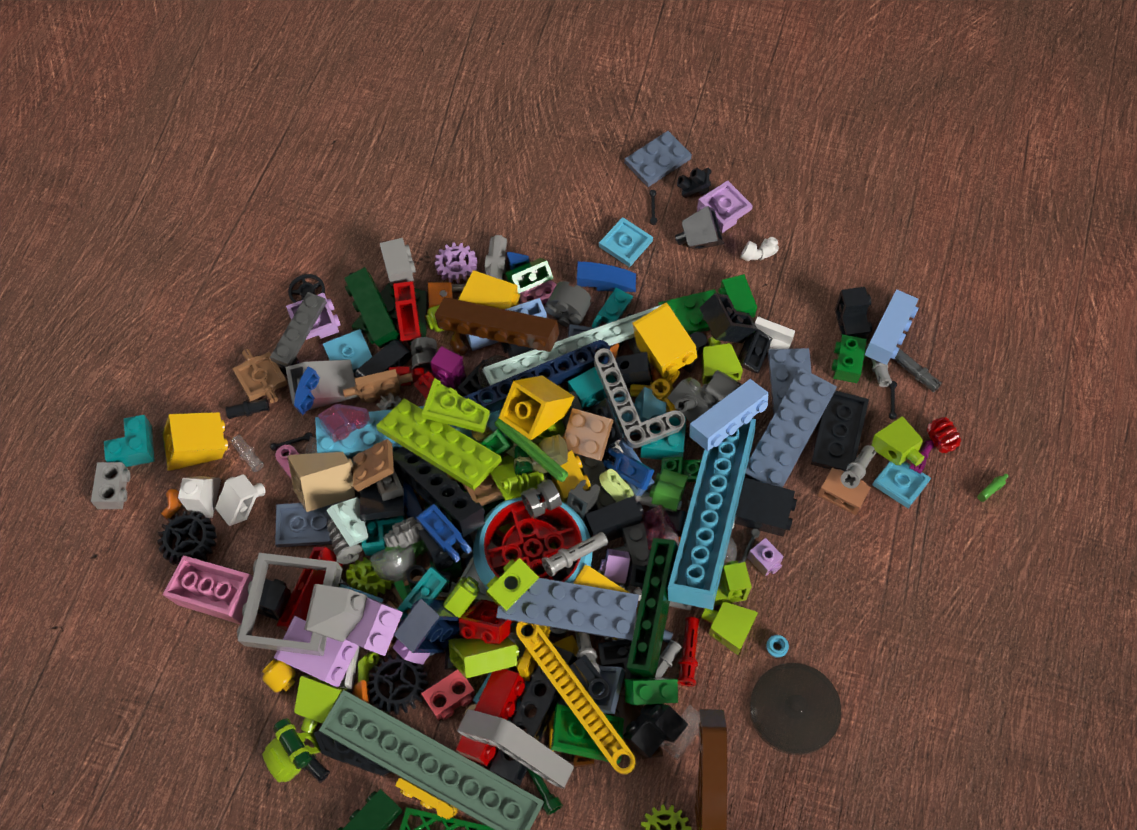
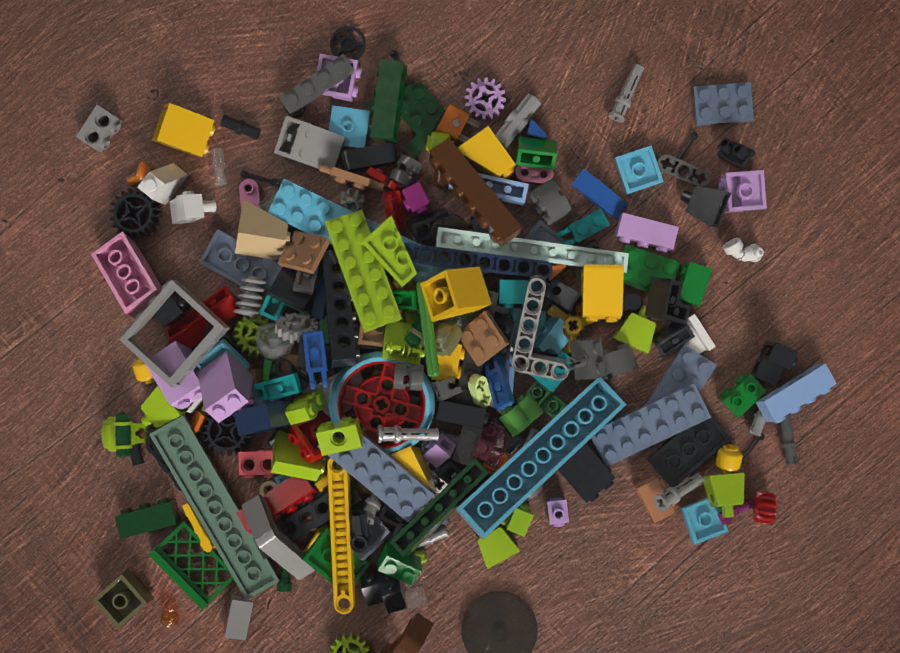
camera: 30 degrees right, 25 degrees up
(135, 447) = (136, 105): teal brick -> none
(259, 376) = (264, 105): medium nougat plate -> none
(303, 396) = (283, 155): blue slope -> none
(334, 611) = (200, 366): light grey slope -> none
(342, 420) = (298, 199): clear pink slope -> none
(347, 519) = (256, 289): light aqua wing -> none
(398, 261) = (434, 70): light grey brick -> none
(407, 311) = (414, 123): red slope -> none
(575, 200) = (623, 101): none -> light grey pin
(668, 215) = (698, 171): none -> dark grey beam
(668, 282) = (646, 232): none -> lavender brick
(687, 661) = (445, 549): red pin -> none
(729, 415) = (606, 390): light blue brick -> none
(755, 534) = (564, 484): dark grey hinge -> none
(779, 640) = (518, 585): medium azure plate -> none
(880, 415) = (729, 458): none -> yellow head
(997, 483) = (774, 567): bright green piece -> none

